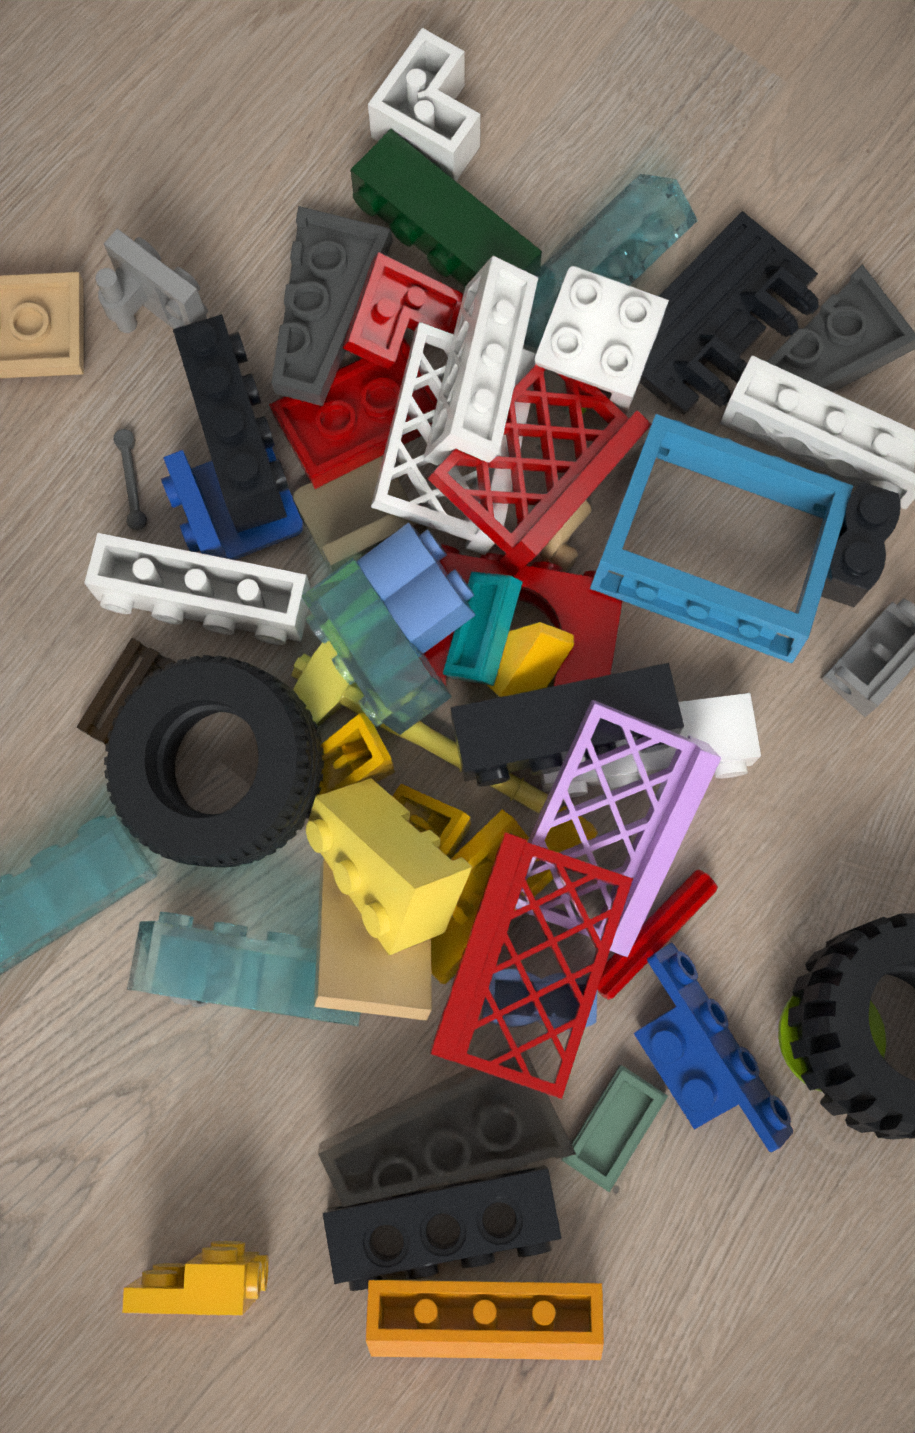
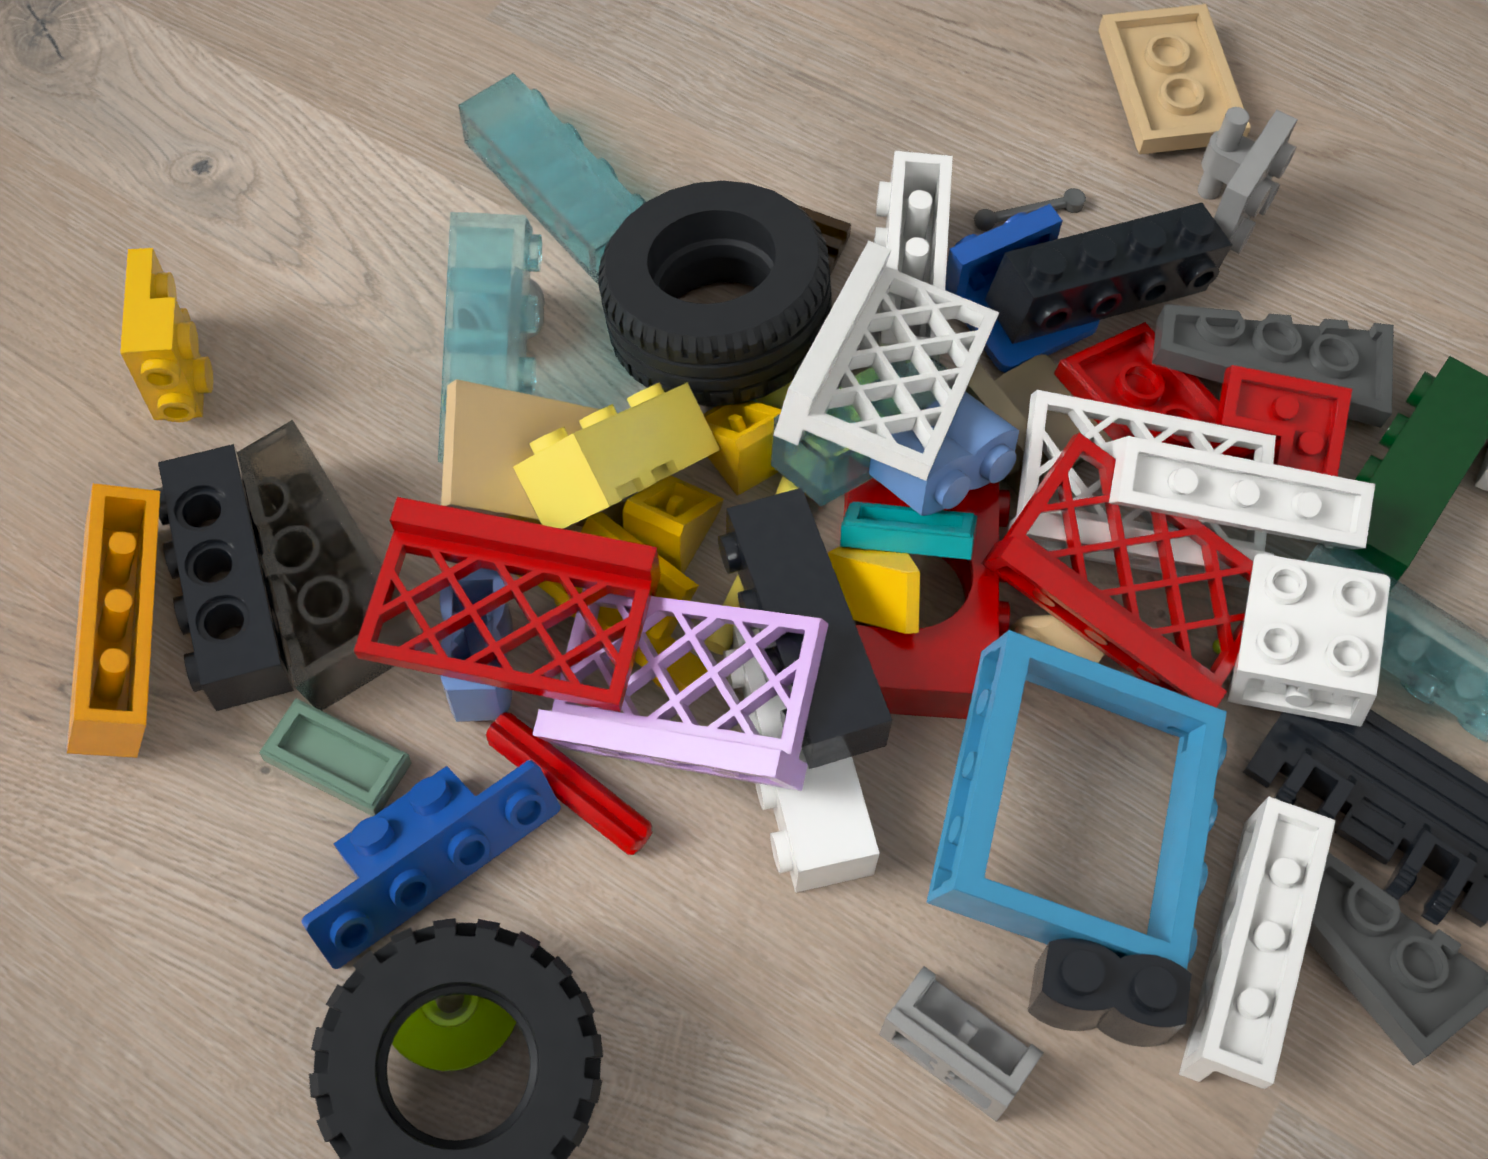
camera: 80 degrees right, 15 degrees down
(328, 662) = (837, 353): none -> white fence

